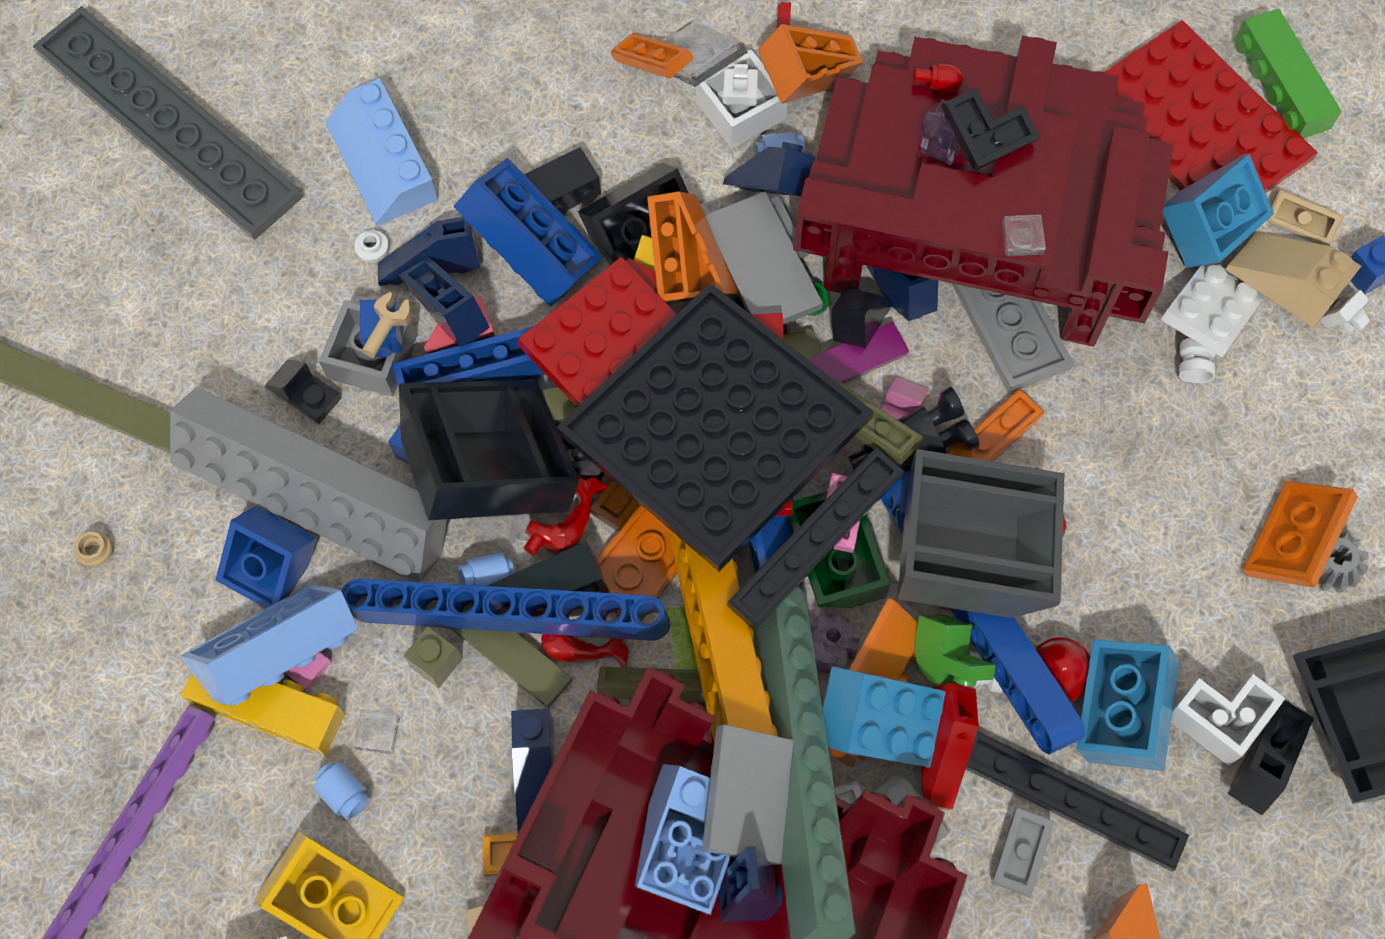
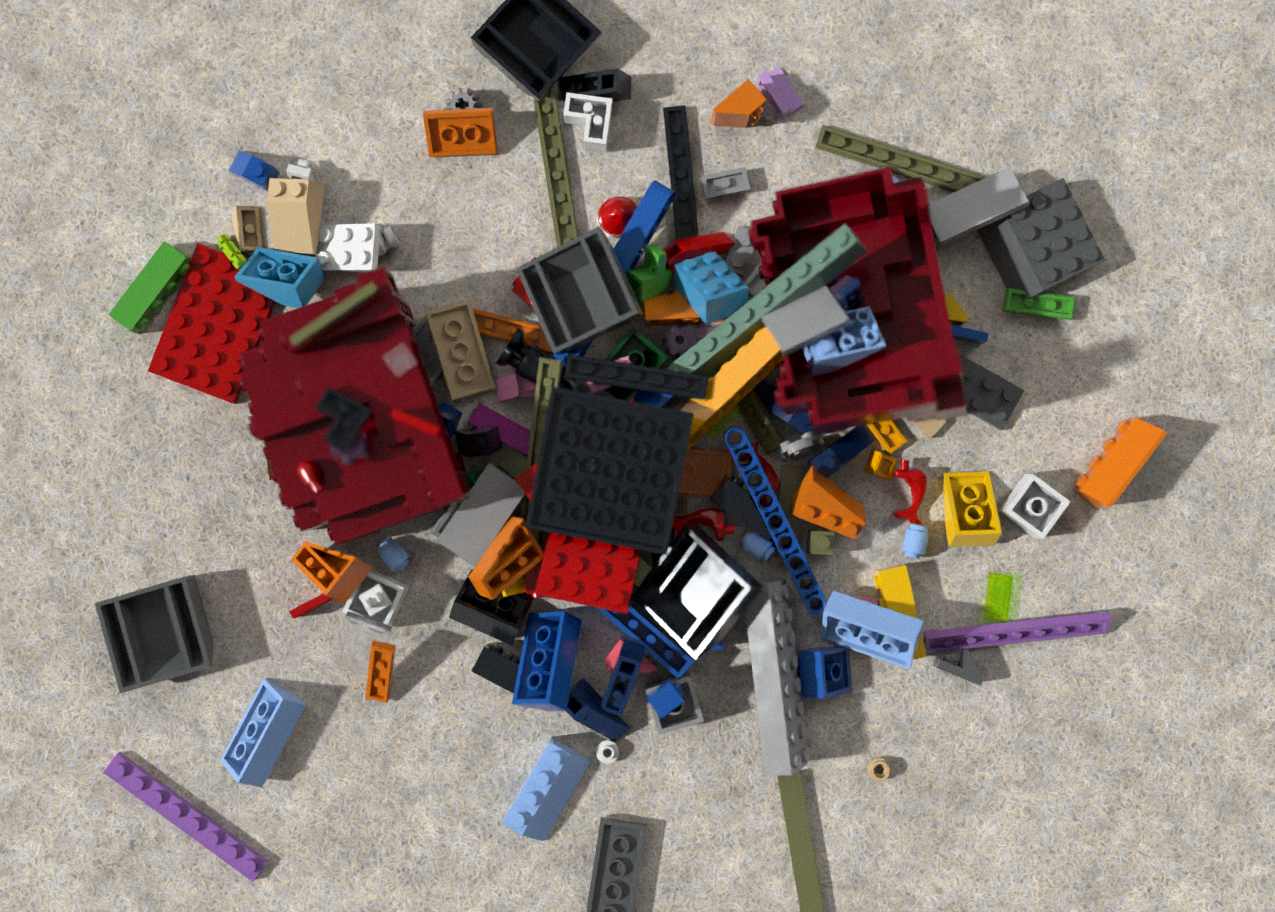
camera: 125 degrees left, 20 degrees up
(124, 738) = (964, 669): none -> dark grey slope
(182, 858) = (997, 597): none -> clear neon green tile
(303, 390) = (718, 725): black slope -> none
(387, 321) = (667, 691): tan bar -> none
(418, 848) = (918, 482): none -> red animal
(469, 692) = (827, 505): none -> orange wedge
(477, 814) = (880, 465): none -> light orange slope
(582, 684) = (802, 447): none -> light grey plate
(774, 171) = (424, 536): dark blue slope -> none
(927, 207) = (416, 423): none -> red tile
(995, 363) = (460, 349): none -> tan tile
(1128, 704) = (618, 170): dark azure brick -> none
(1129, 194) = (335, 315): none -> olive tile
(1184, 635) = (556, 168): none -> olive tile
(1286, 180) = (231, 251): none -> lime axle

